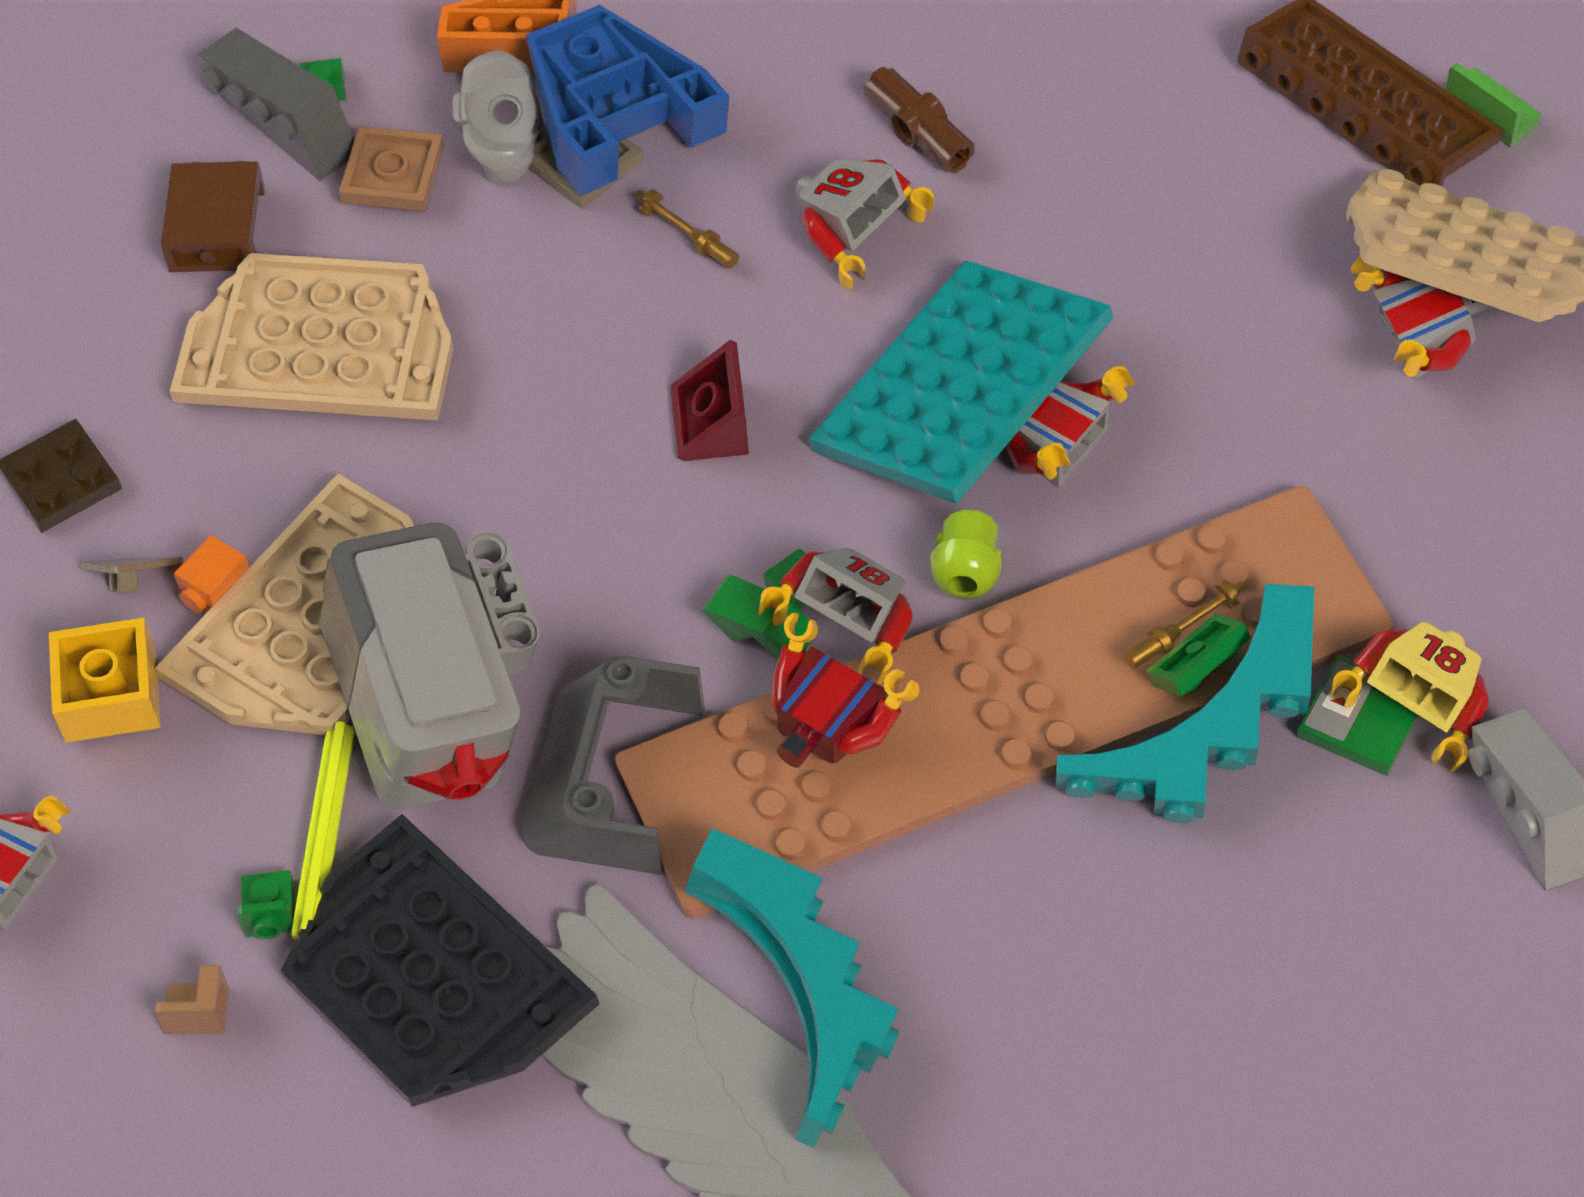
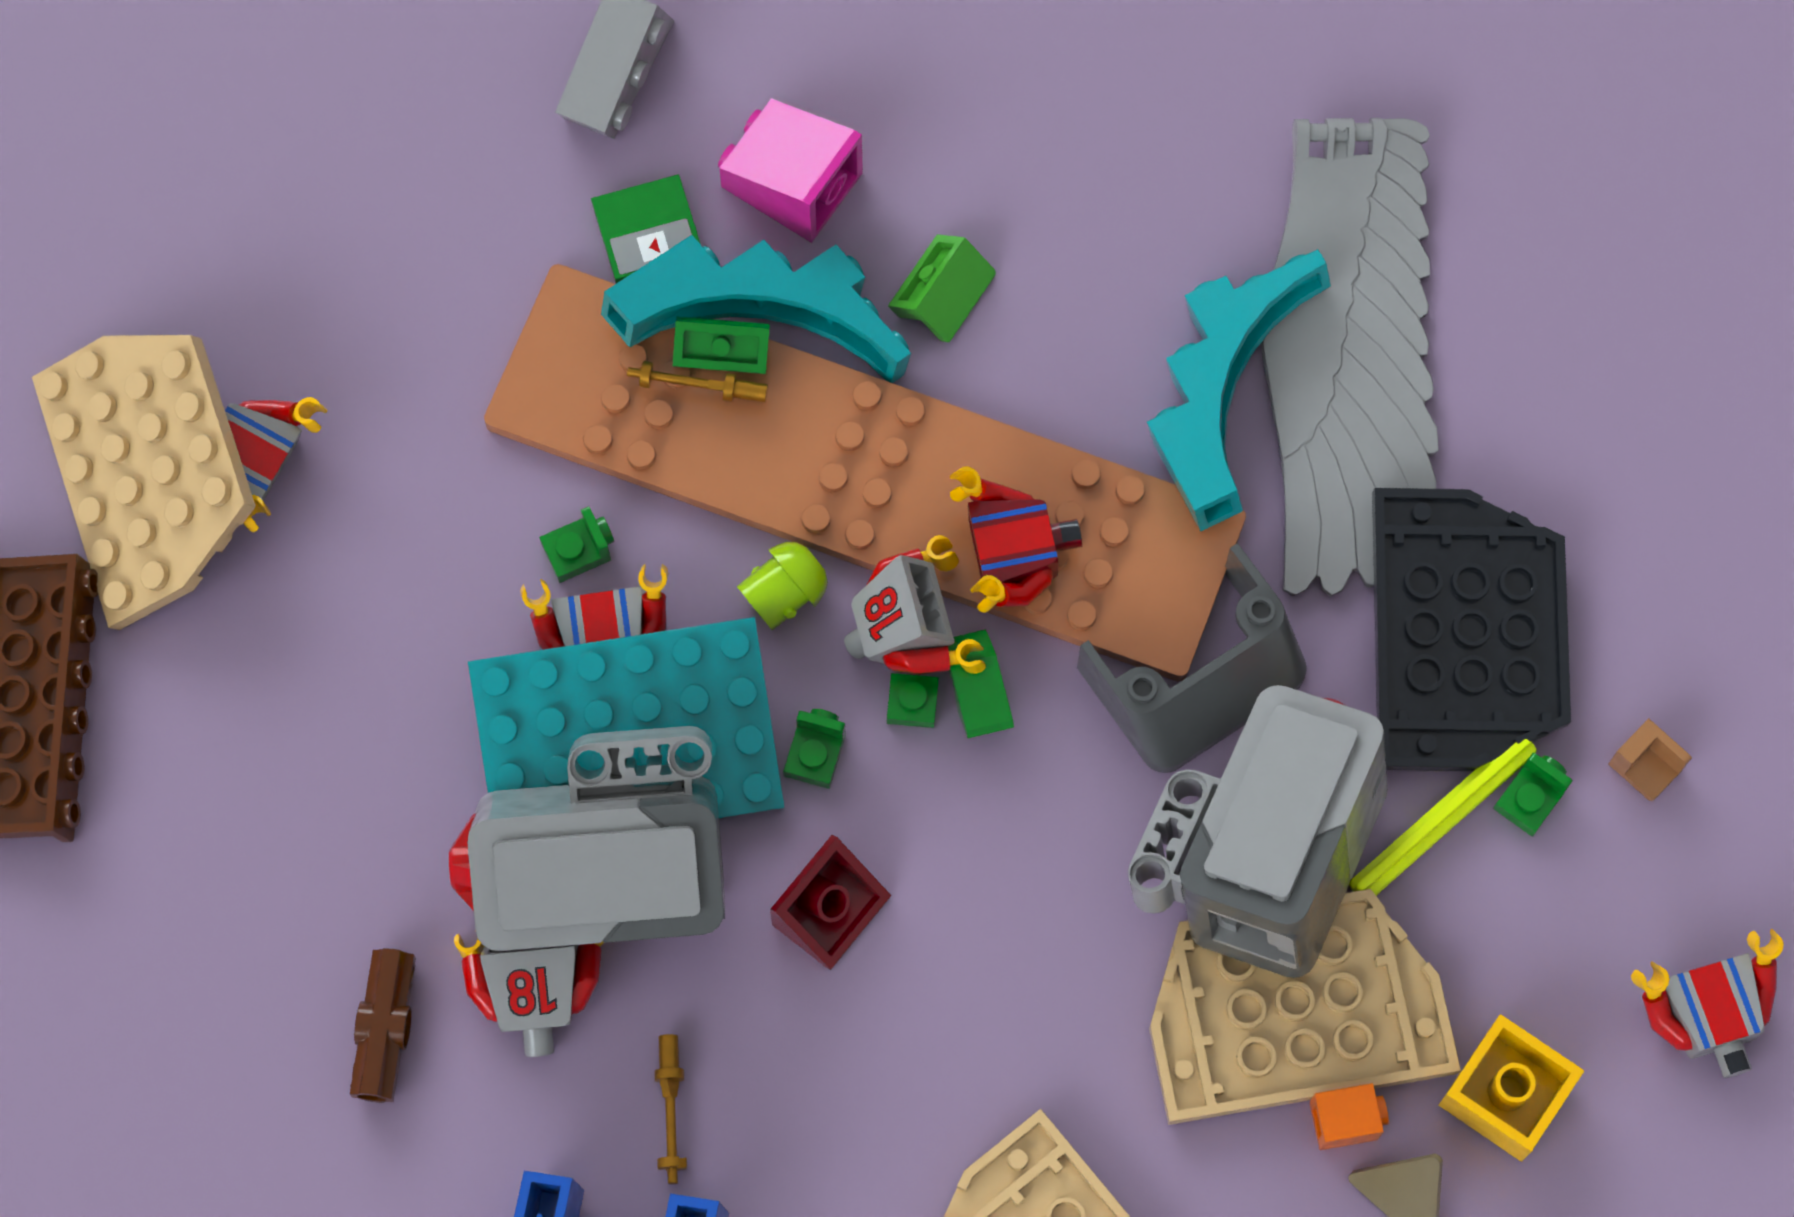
camera: 140 degrees left, 15 degrees up
(828, 492) = (815, 748): none -> green bracket
(877, 265) = (599, 858): none -> light grey piece
(1097, 867) = (944, 286): none -> bright green panel
(1142, 471) = (578, 546): none -> green bracket
(1309, 836) = (793, 166): none -> slope
(1428, 675) = (588, 196): torso -> none

